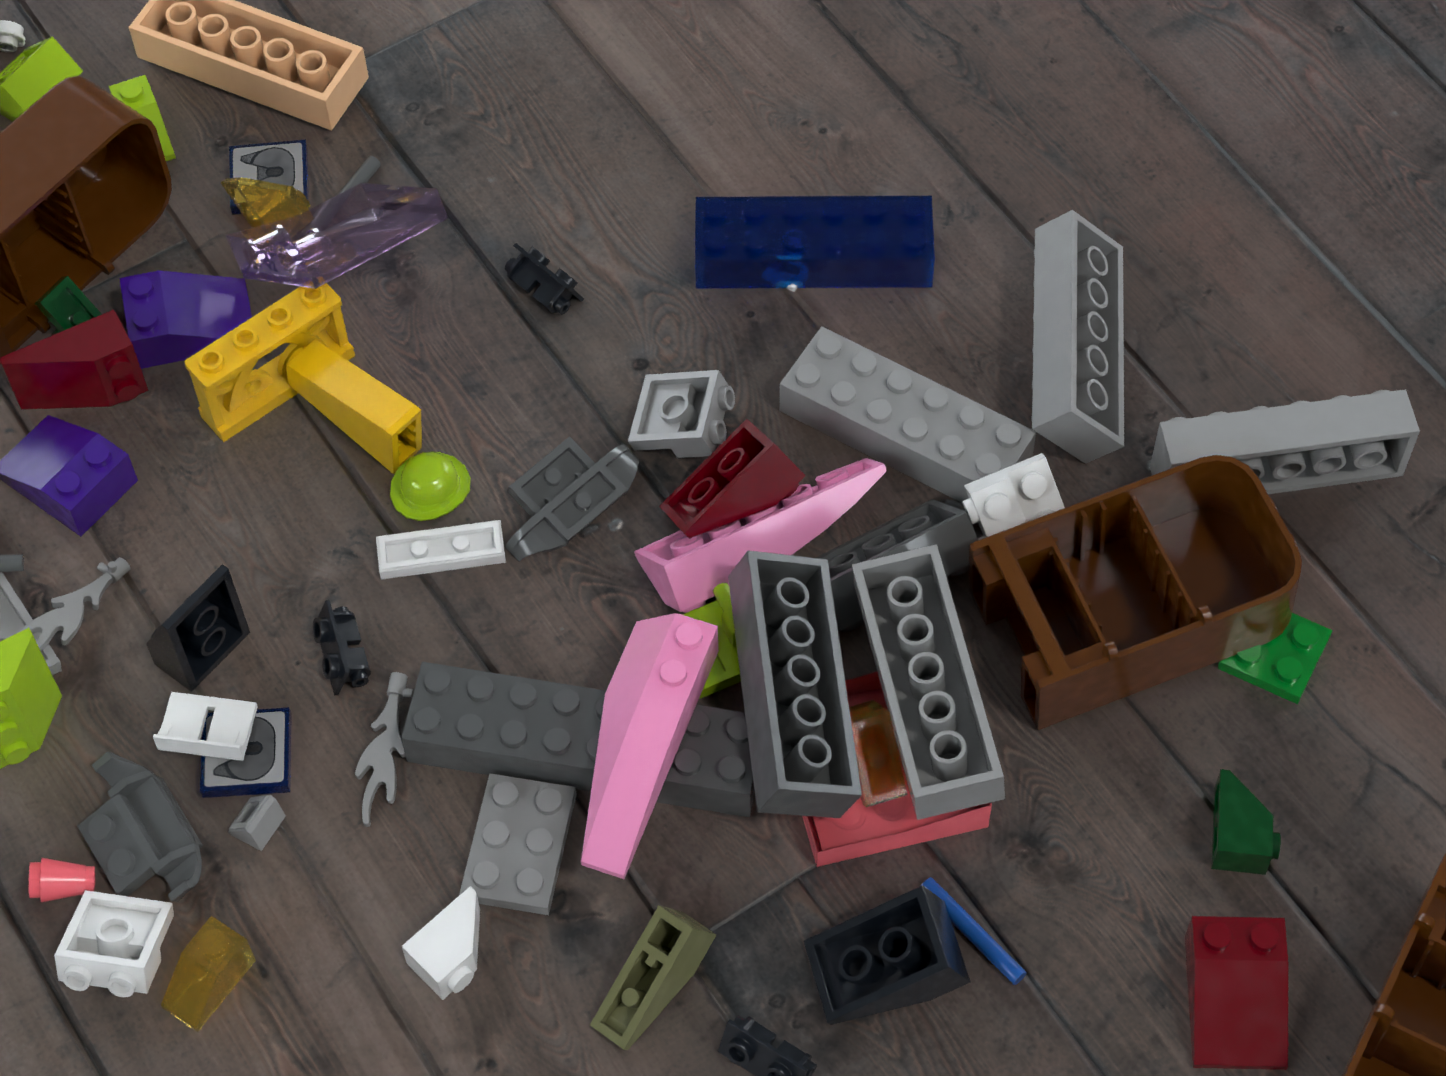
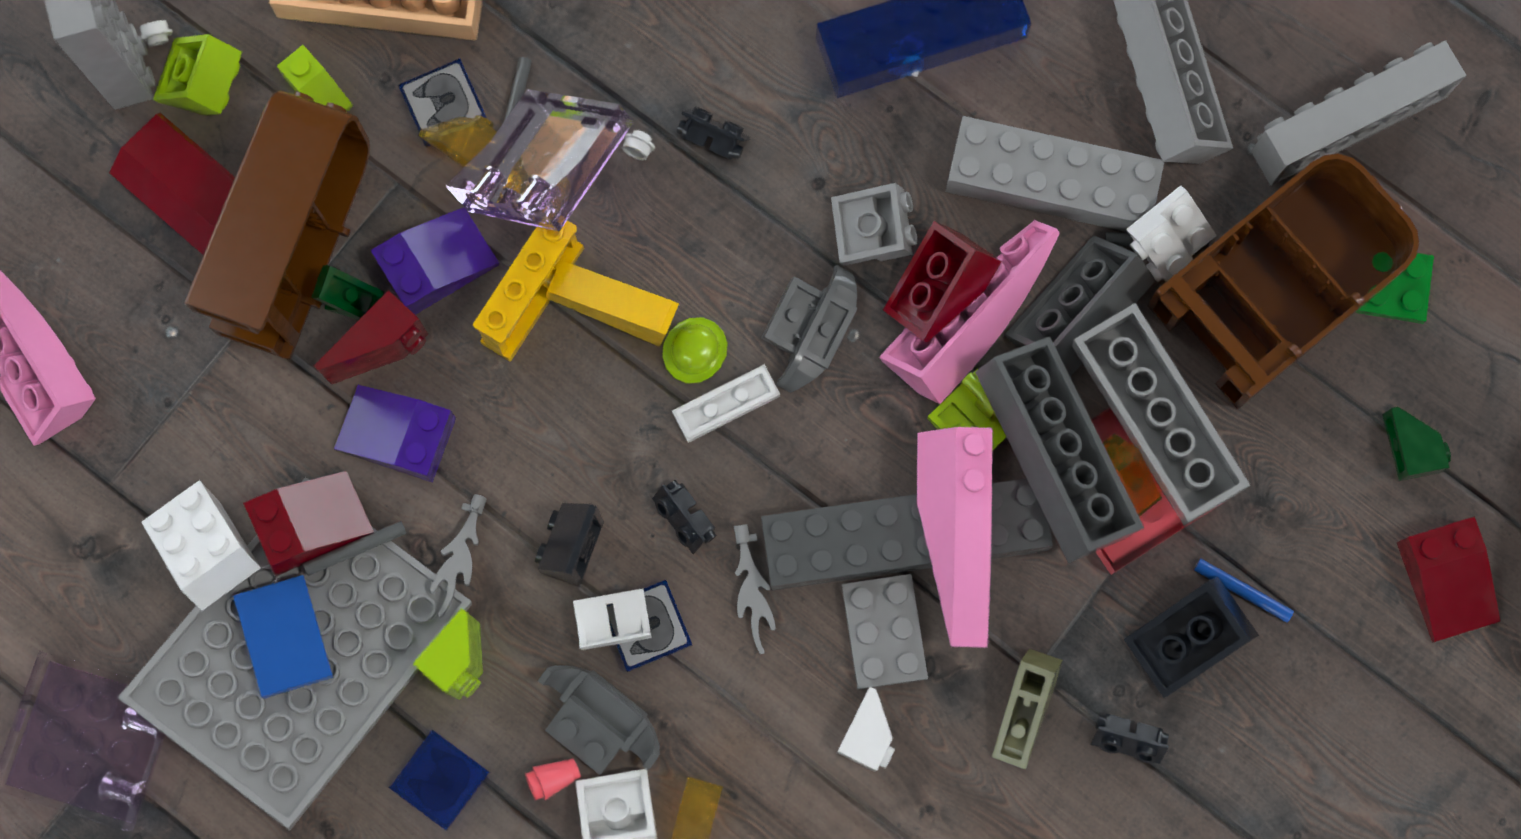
camera: 20 degrees left, 20 degrees up
(257, 821) = (678, 679): light grey slope -> none
(456, 269) = (638, 145): none -> white plate

